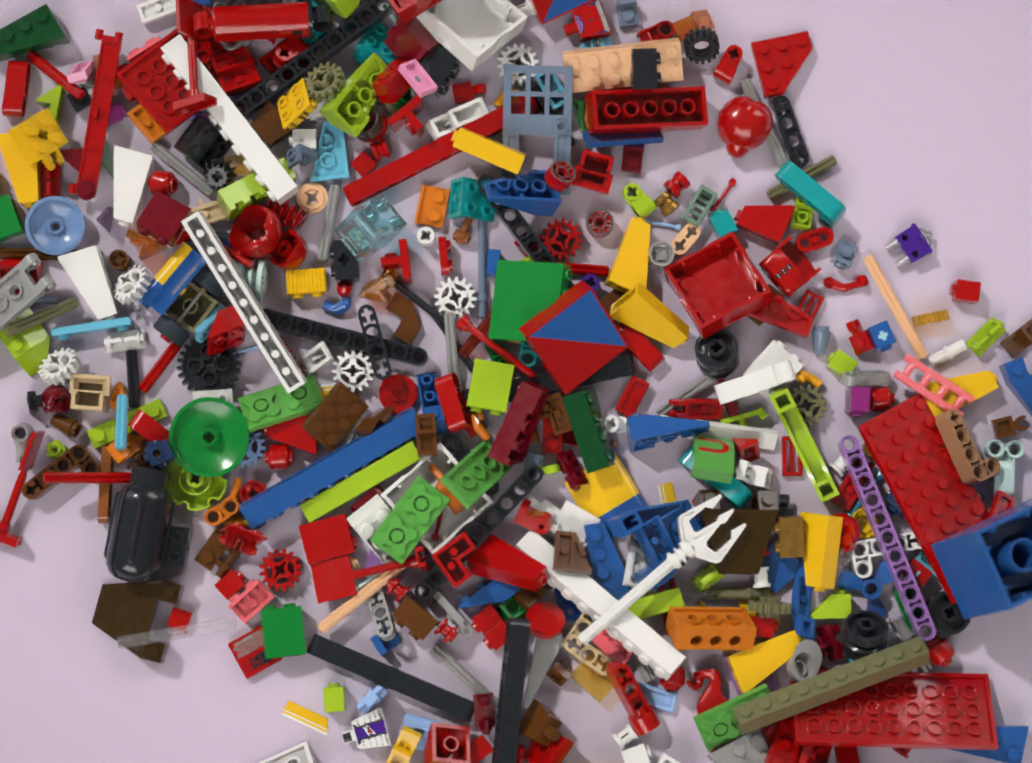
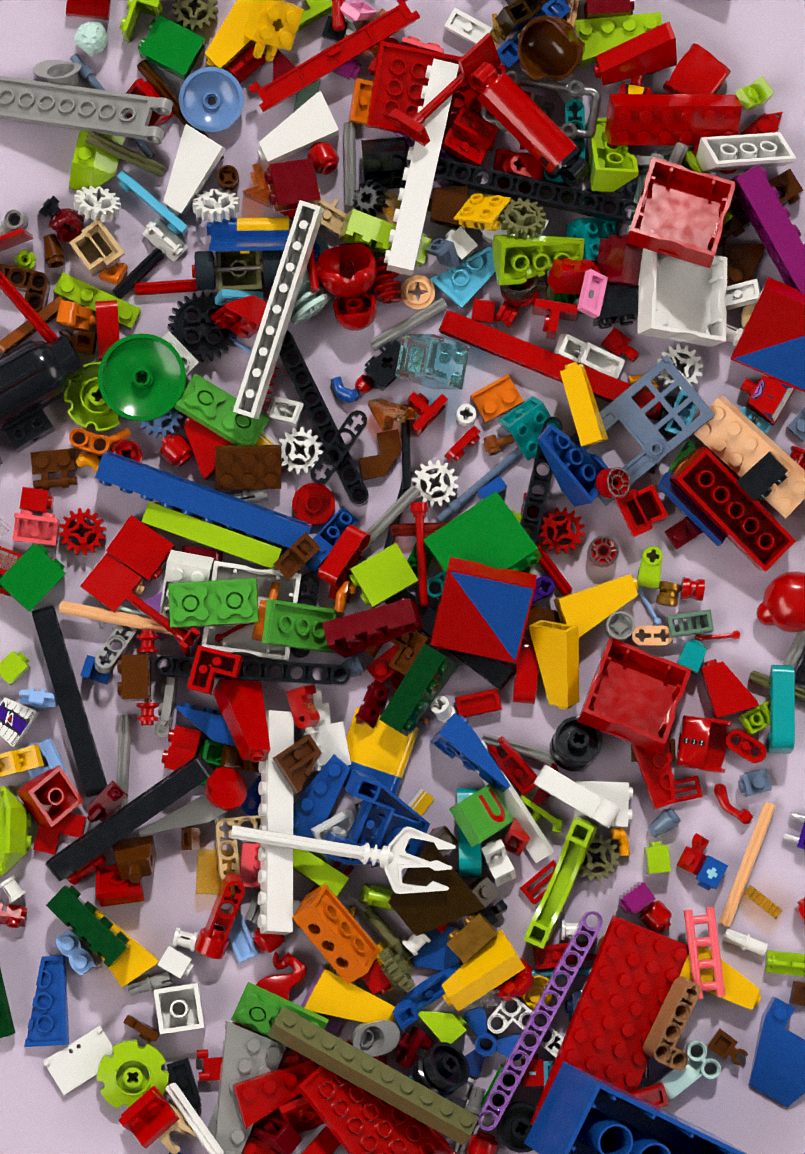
camera: 50 degrees right, 0 degrees up
(86, 190) = (262, 100): dark red plate -> none
(106, 218) = (253, 137): clear purple slope -> none
(121, 422) = (93, 294): medium azure axle -> none
(155, 447) = (92, 339): dark blue brick -> none
(248, 538) = (83, 466): red hinge -> none
(306, 282) = (341, 348): yellow brick -> none
(375, 418) = (276, 503): reddish brown slope -> none
(551, 469) = (358, 687): lime tile -> none
(865, 378) = (662, 888): light grey beam -> none

